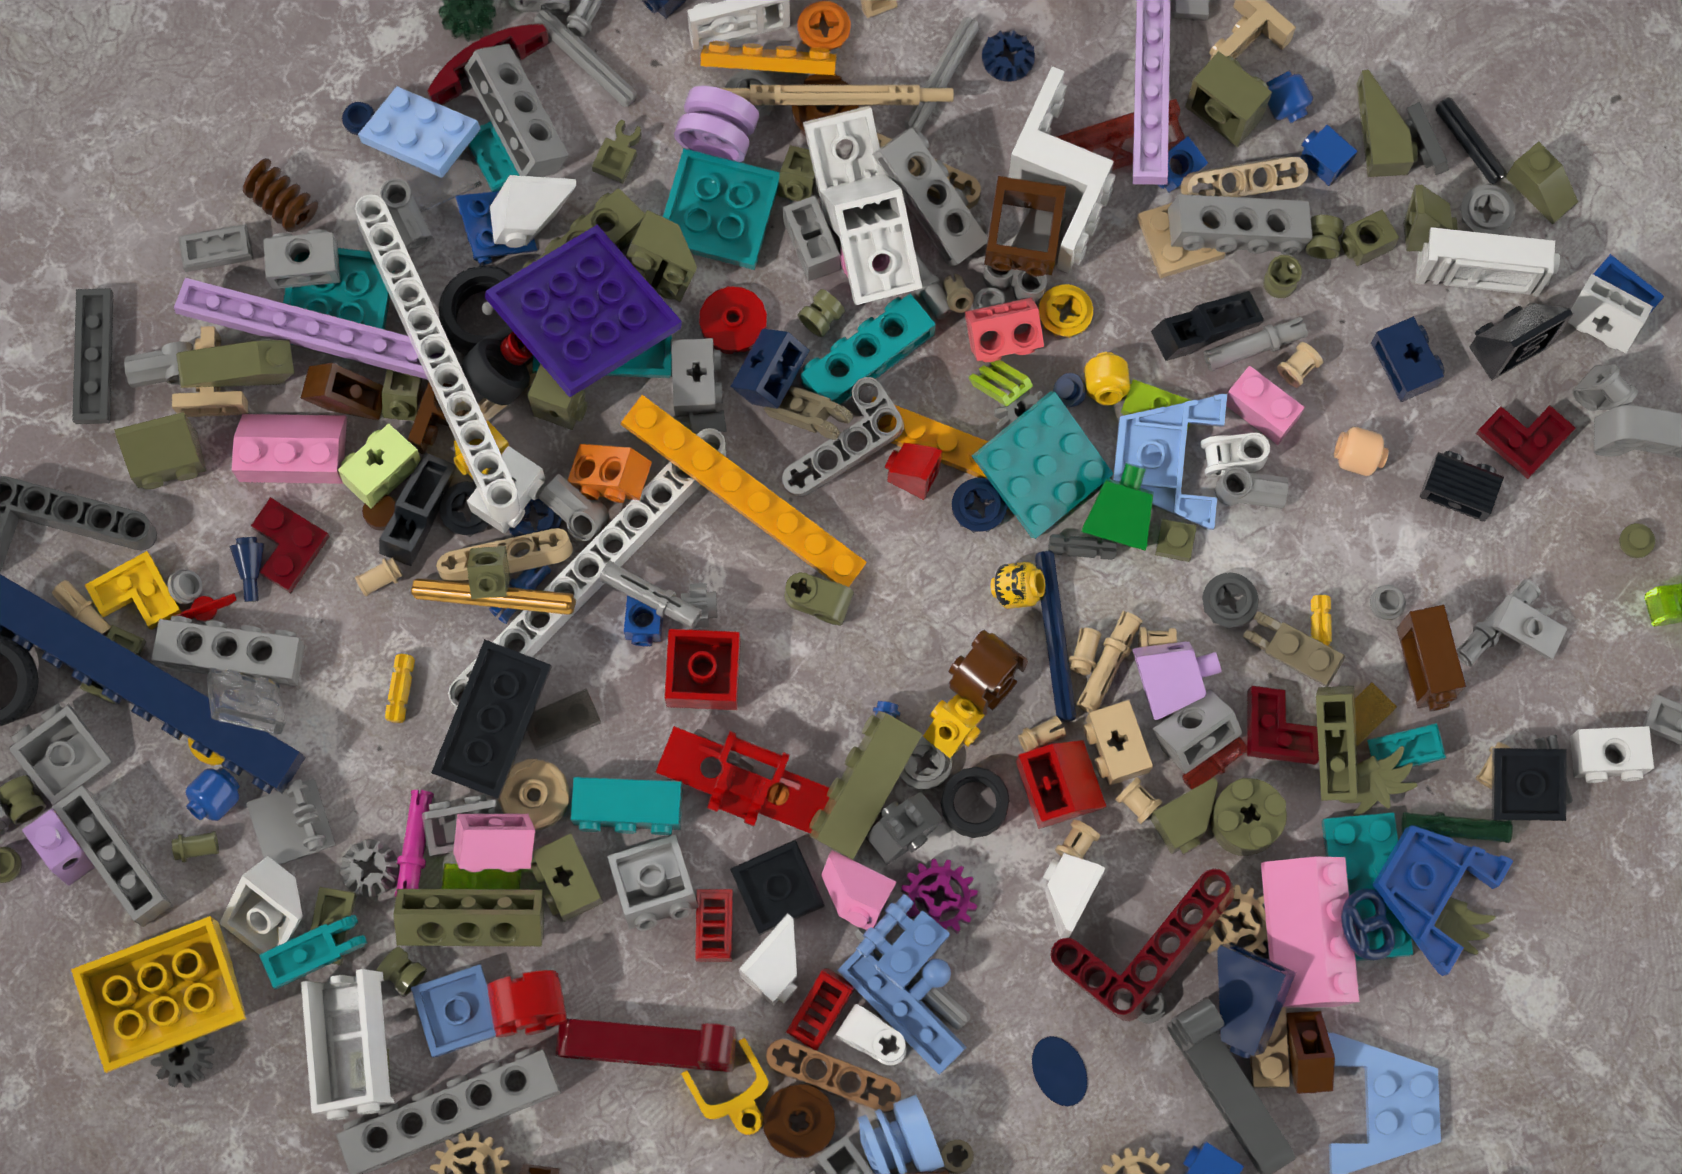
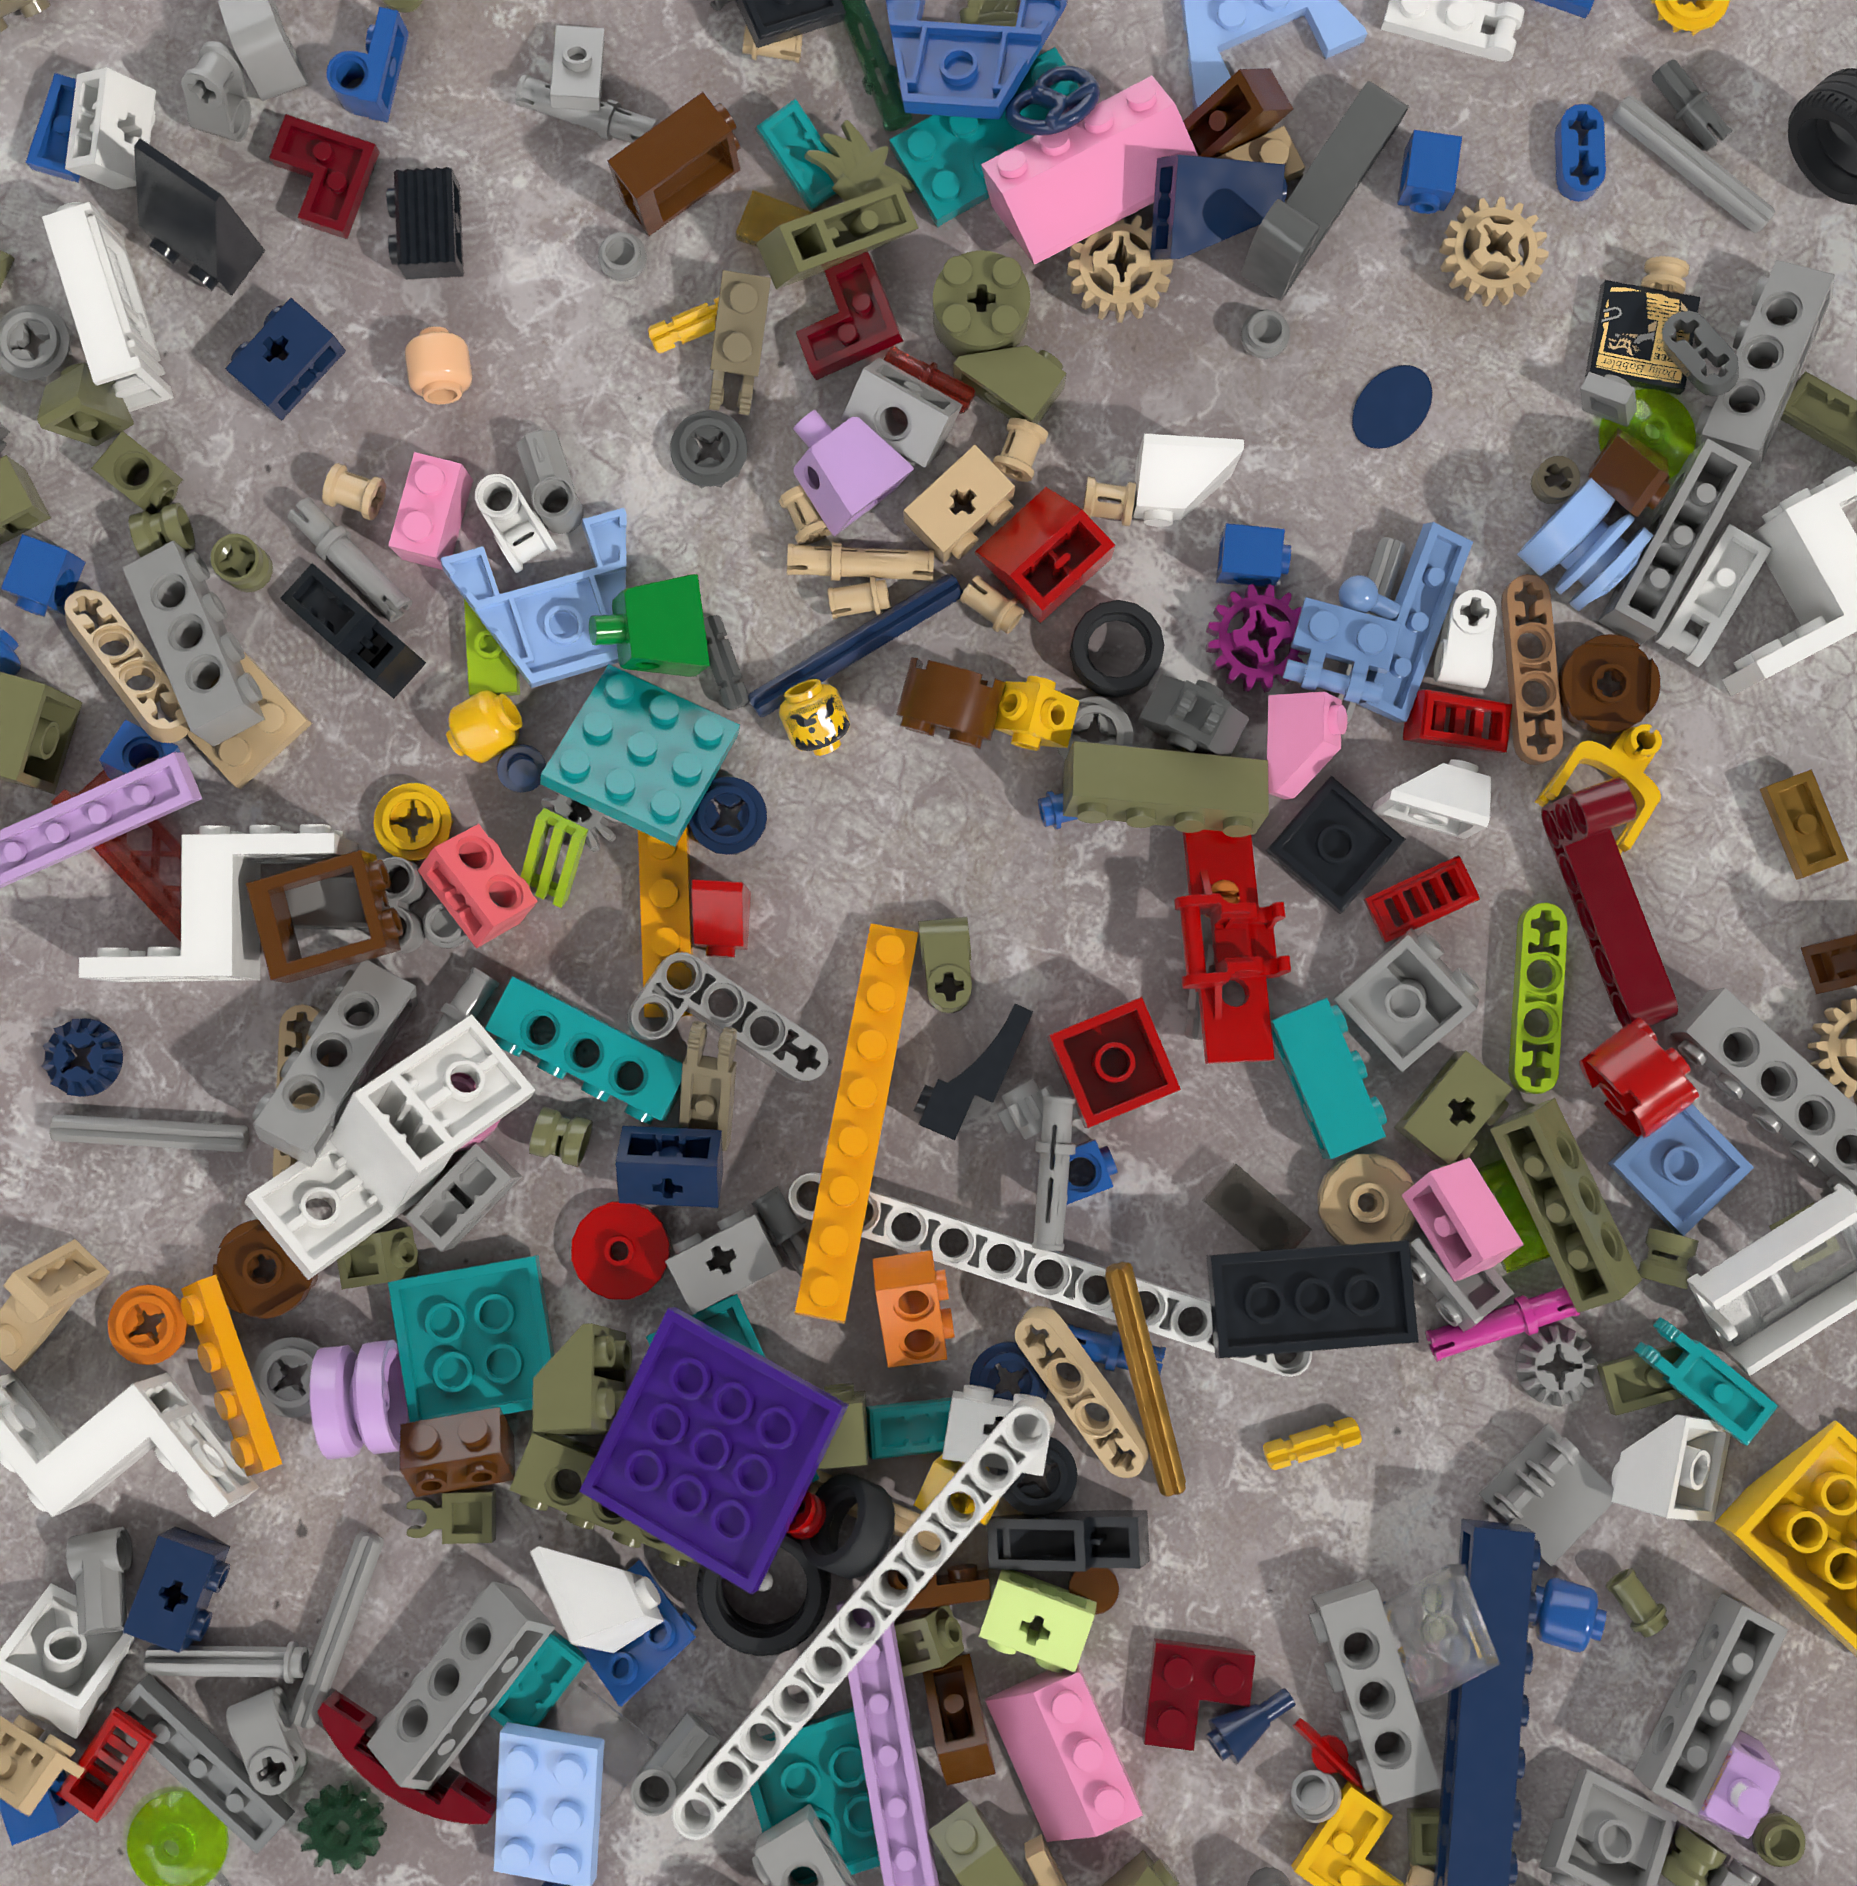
camera: 110 degrees left, 10 degrees up
(379, 576) = (1181, 1545): tan pin -> none
(488, 572) = (1125, 1399): olive brick -> none
(537, 438) = (907, 1428): none -> teal plate
(573, 506) = (980, 1316): light grey piece -> none
(614, 967) = (1545, 999): none -> lime beam
(656, 168) = (457, 1452): none -> reddish brown brick
(728, 558) = (948, 1103): none -> black slope
(842, 94) = (242, 1256): tan axle -> none
(959, 297) = (460, 963): dark tan pin -> none
(996, 920) = (1252, 555): none -> blue brick
(1151, 954) = (1214, 343): dark red beam -> none
(1175, 540) = (660, 550): olive plate -> none
(1581, 501) = (379, 68): none -> blue plate

